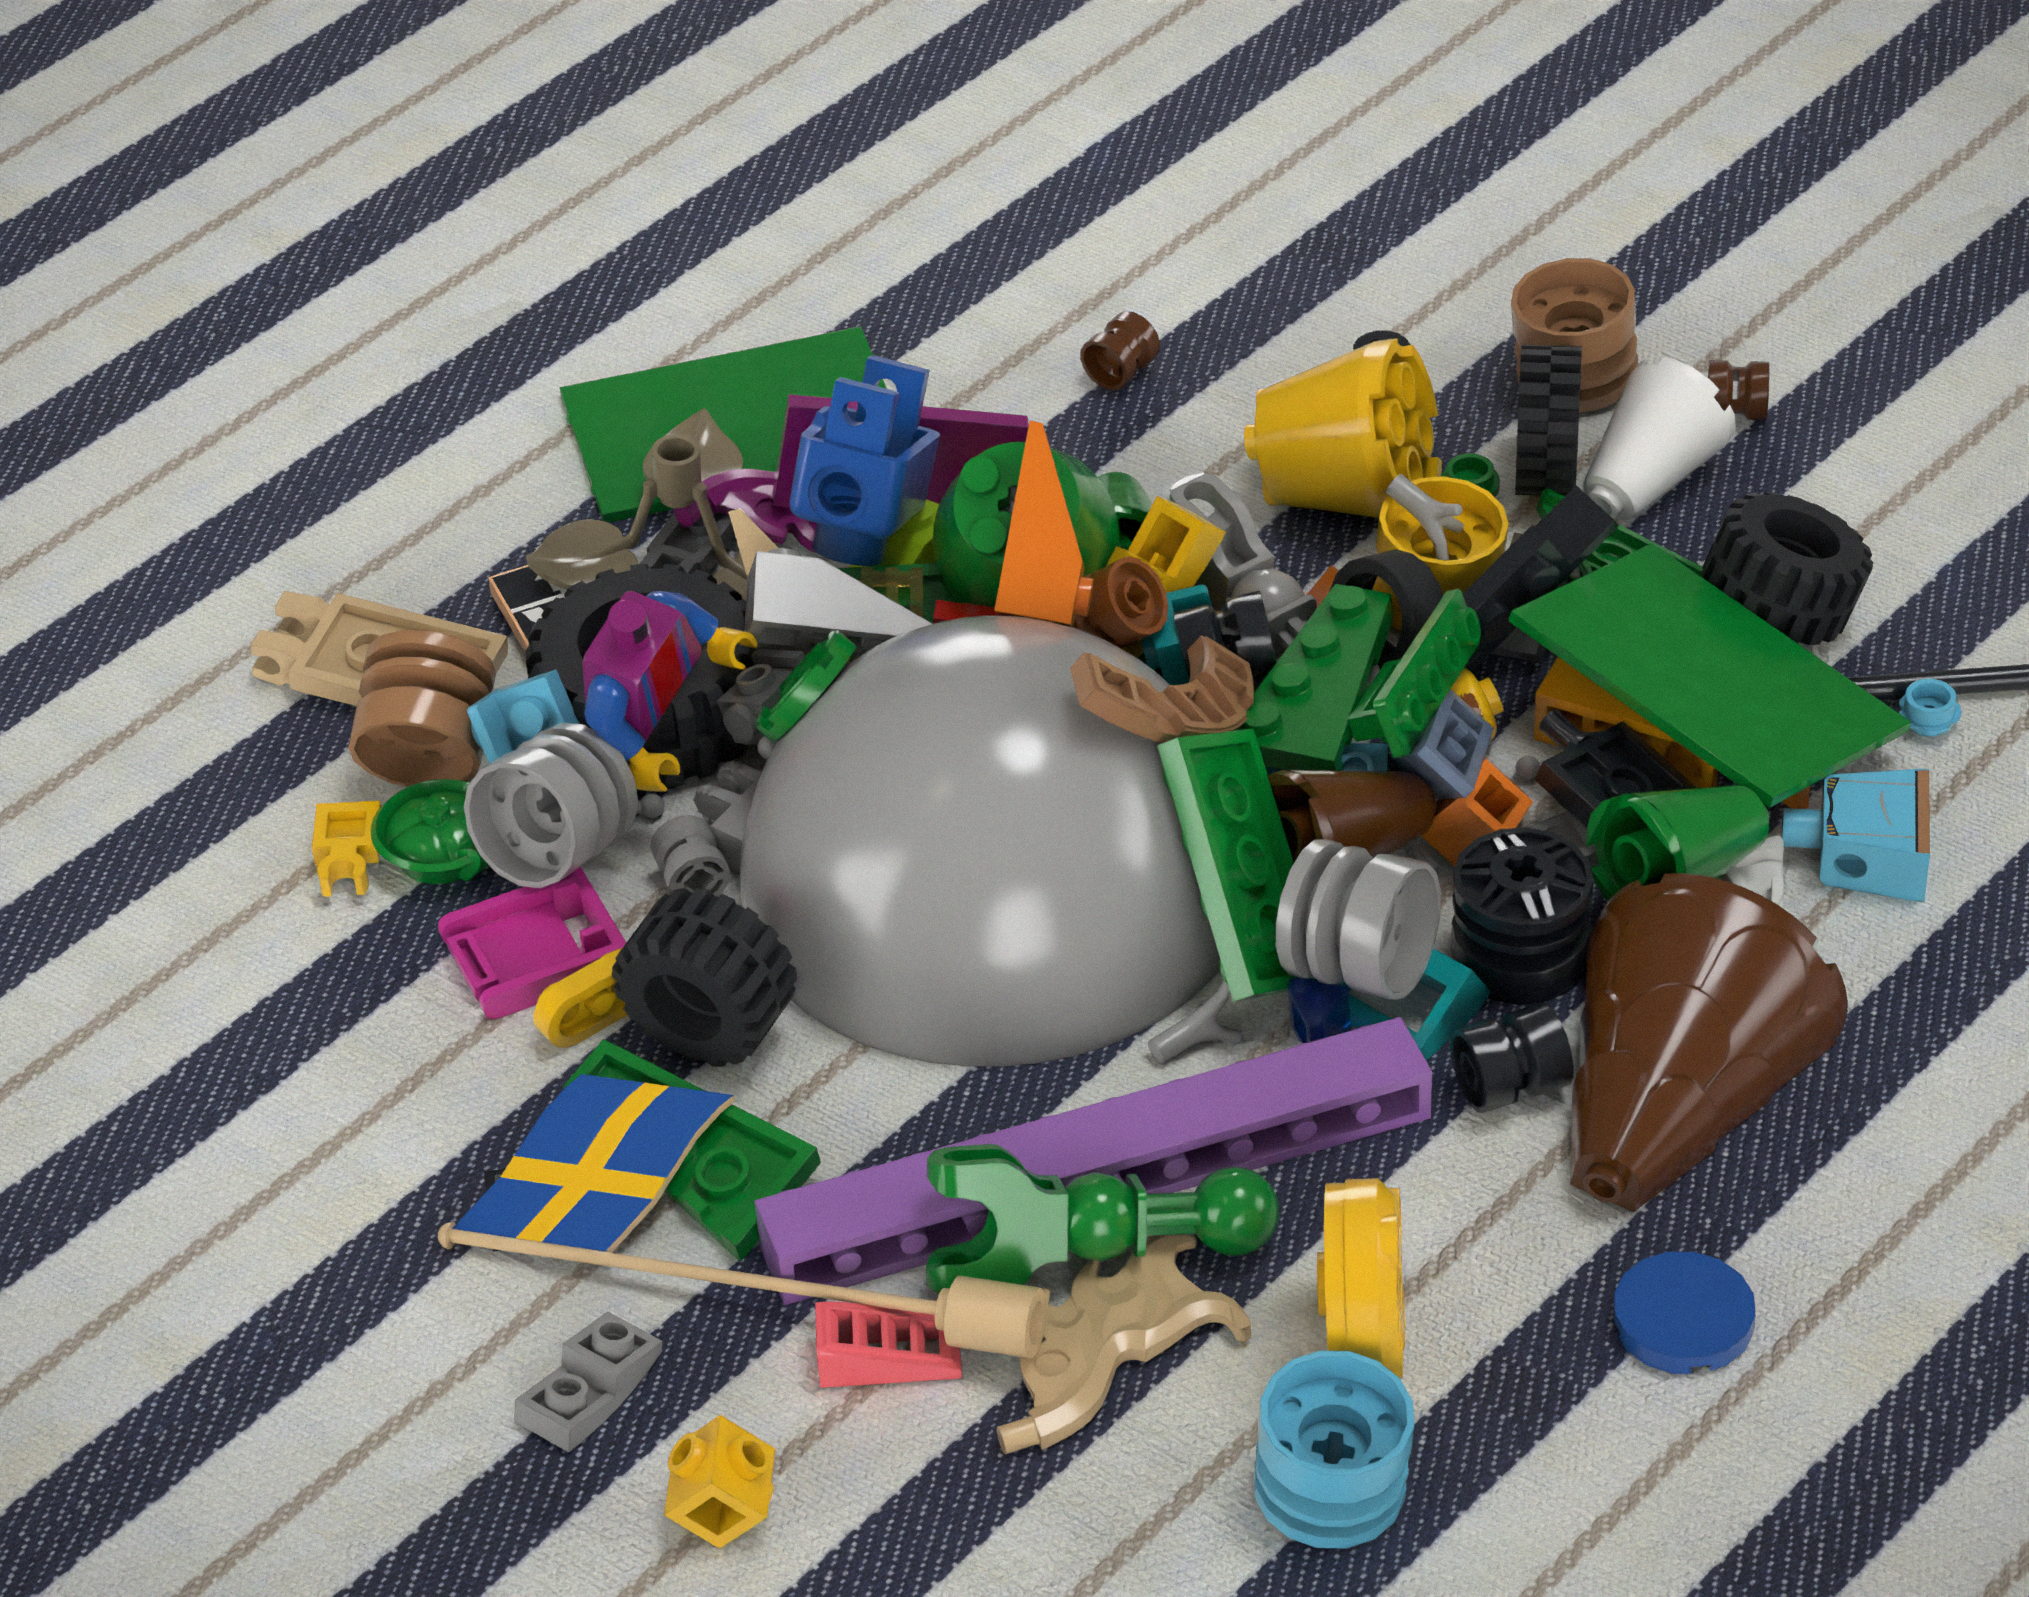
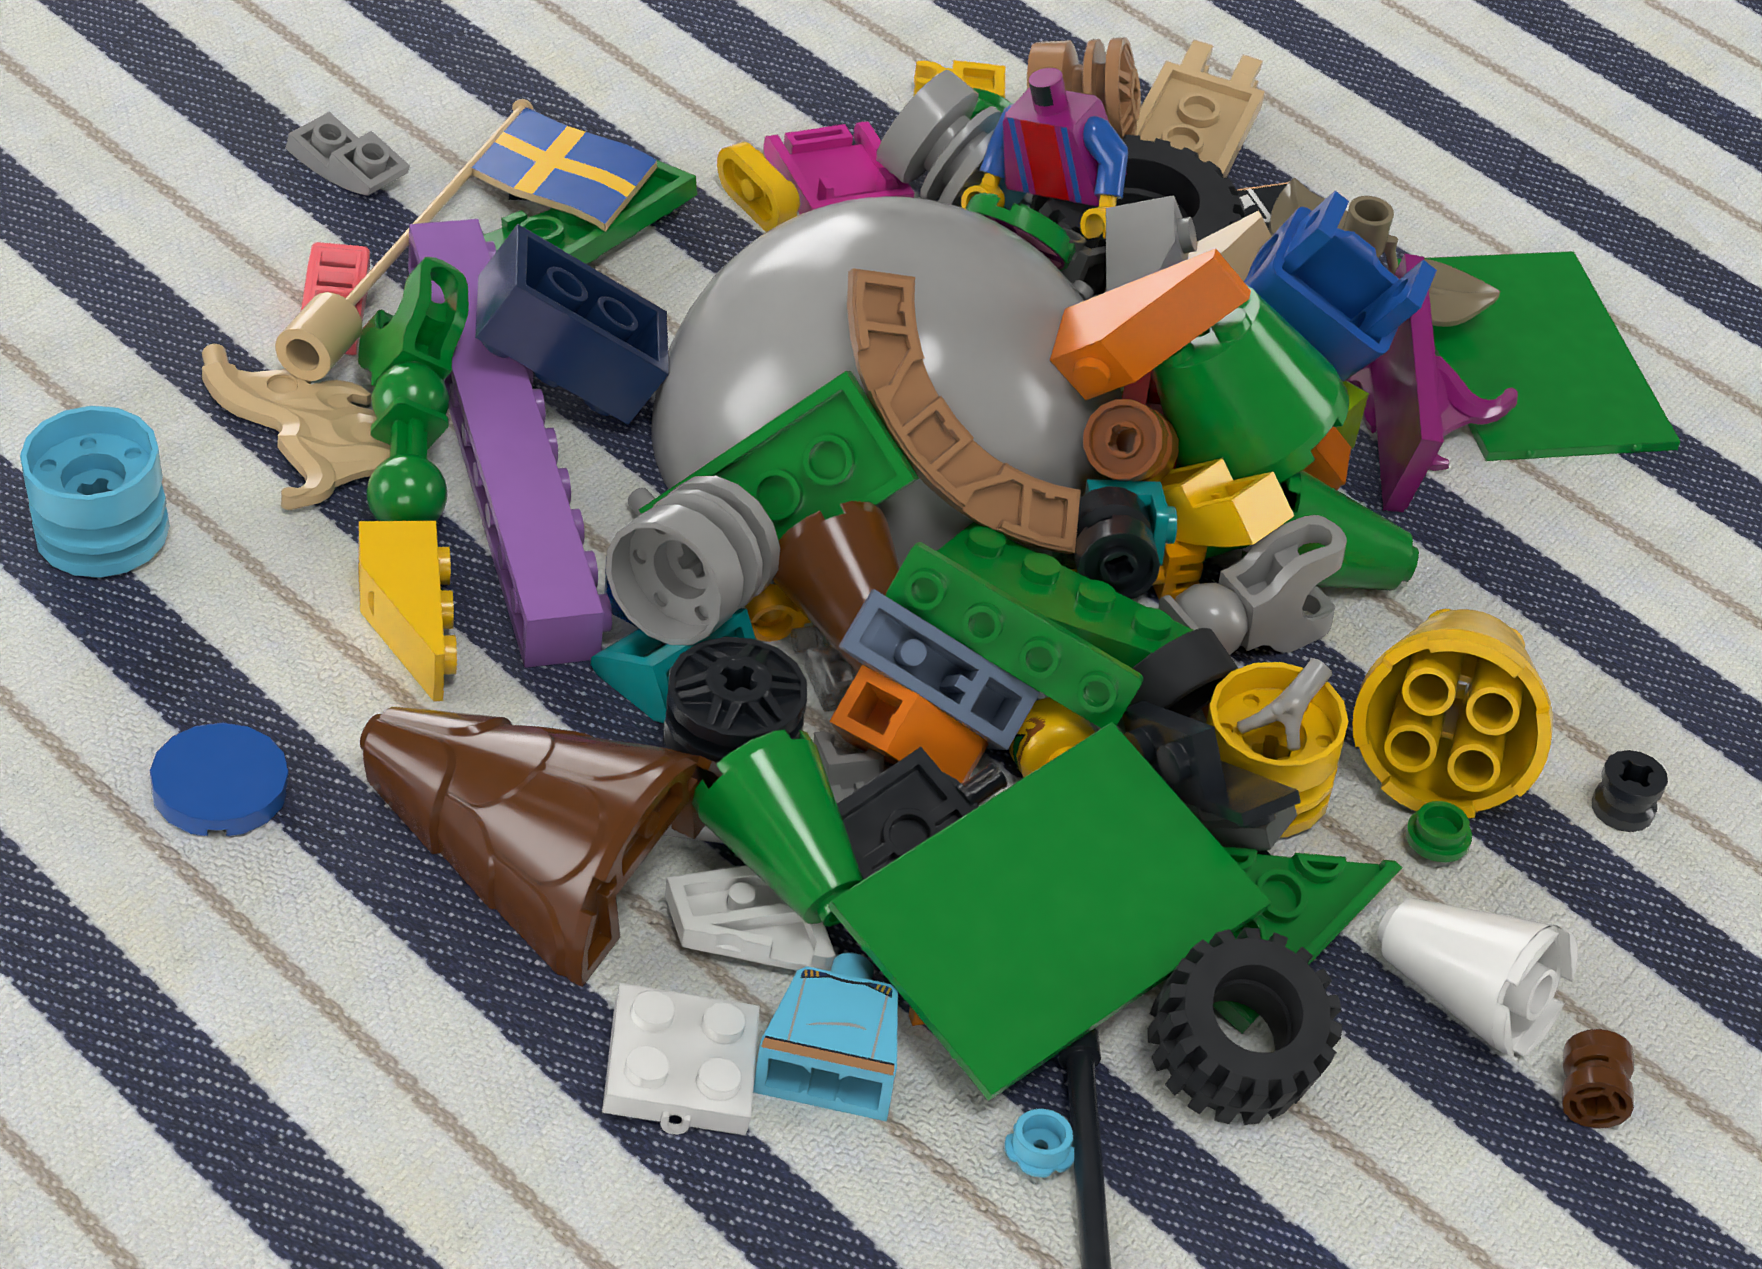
camera: 85 degrees right, 0 degrees up
(704, 977) = (726, 200): black tyre -> none
(719, 1481) = (187, 174): yellow brick -> none
(967, 1076) = (572, 325): none -> dark blue brick
(1120, 350) = (1641, 597): reddish brown wheel -> none
(1362, 1271) = (256, 512): yellow piece -> none
(1432, 1177) = (403, 597): none -> yellow slope
(1522, 1054) = (553, 686): black wheel -> none
(1548, 419) = (1494, 826): black tyre -> none
(1586, 307) = (1659, 924): medium nougat wheel -> none
(1920, 936) = (682, 1060): none -> white plate

